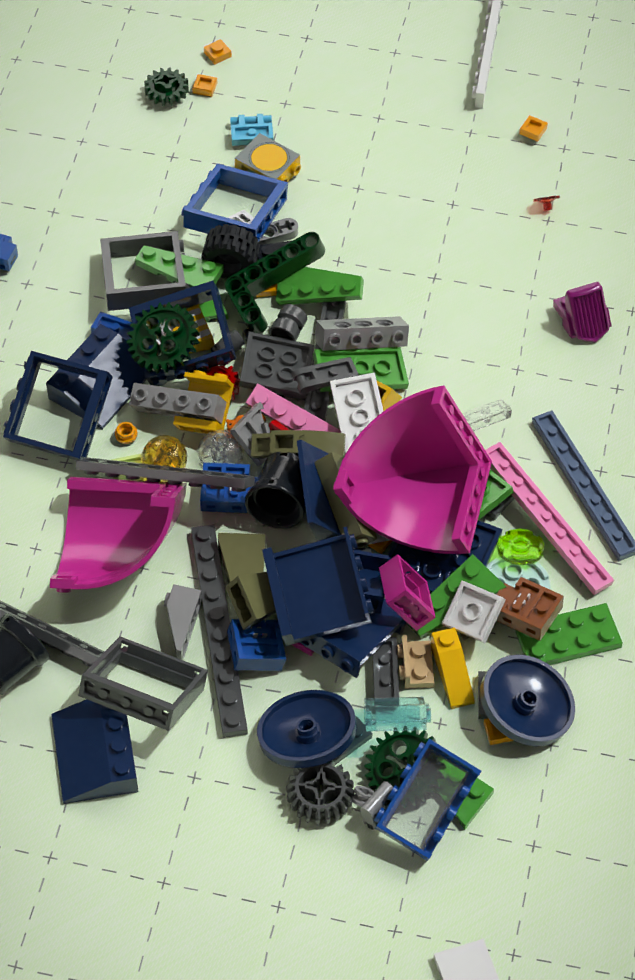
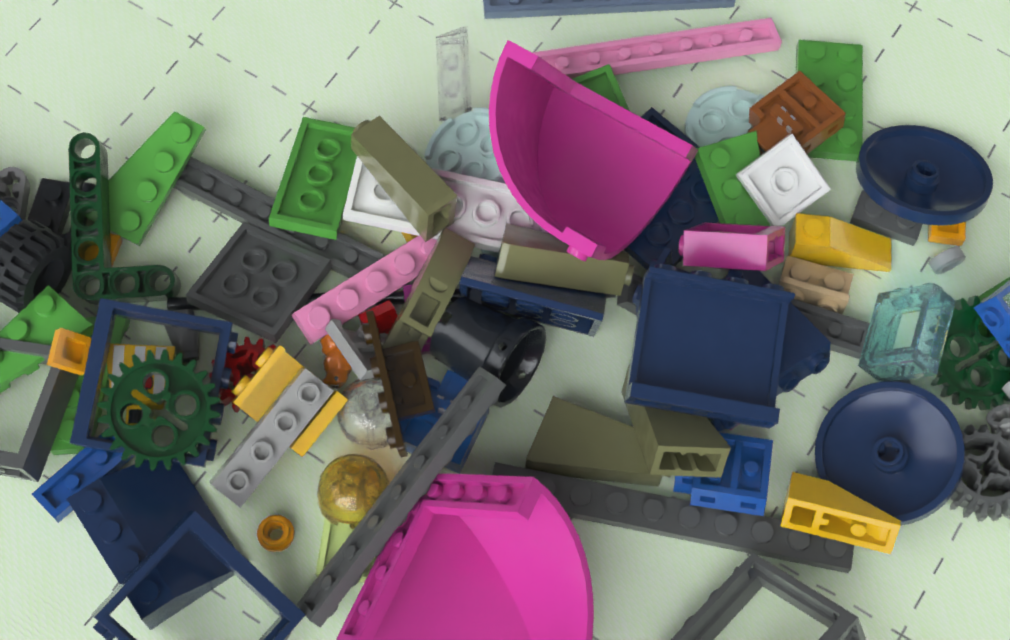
camera: 70 degrees left, 10 degrees up
(180, 282) = (69, 351): none -> light orange plate
(182, 609) = (642, 561): light grey slope -> none
(234, 446) = (403, 381): none -> dark brown bracket
(252, 700) = (836, 514): none -> yellow slope
(289, 323) = (191, 241): dark grey wheel -> none
(323, 373) = (325, 217): dark grey plate -> none
(361, 333) = (264, 152): light grey brick -> none
(361, 397) = (405, 177): none -> olive slope
(470, 735) = (947, 260): none -> light grey tile
(520, 547) = (683, 98): clear neon green tile -> none

